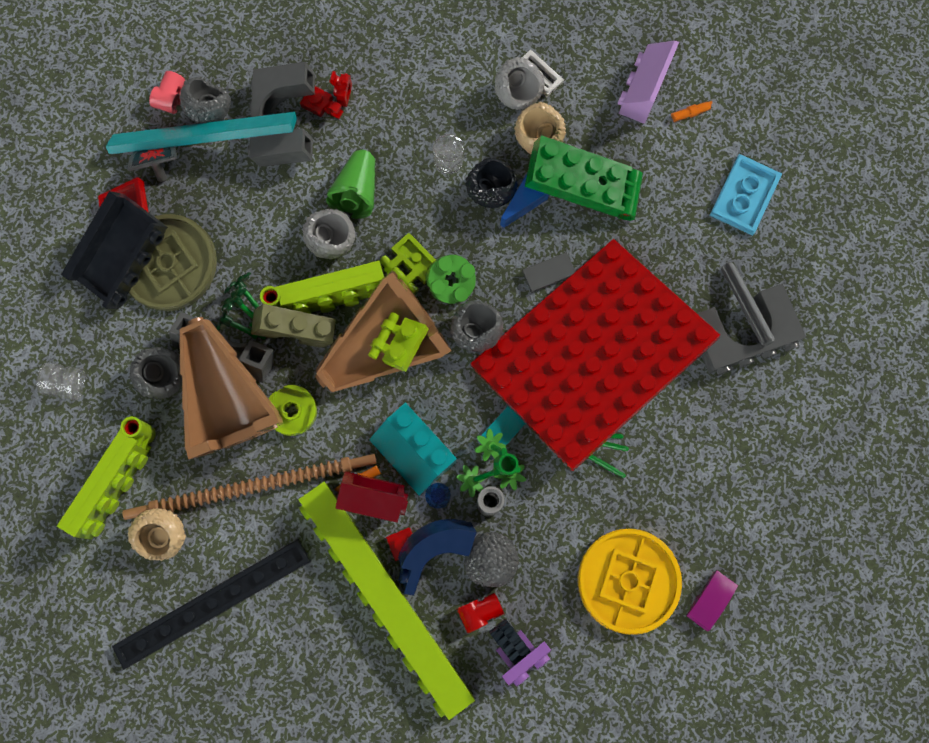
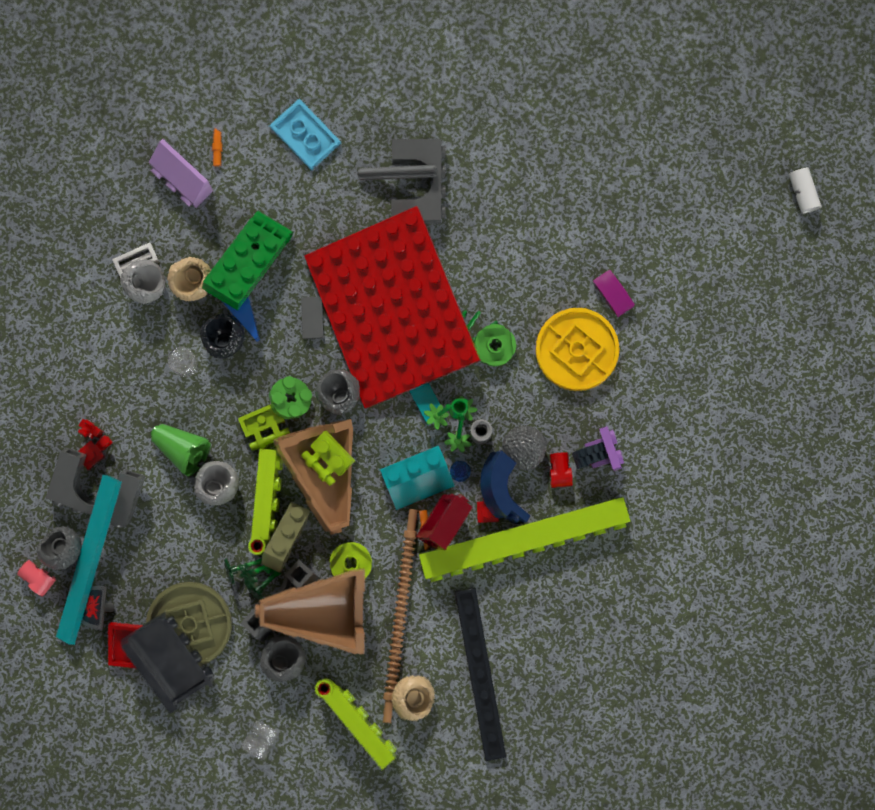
camera: 65 degrees left, 5 degrees up
(610, 487) = (502, 336): none -> bright green plate

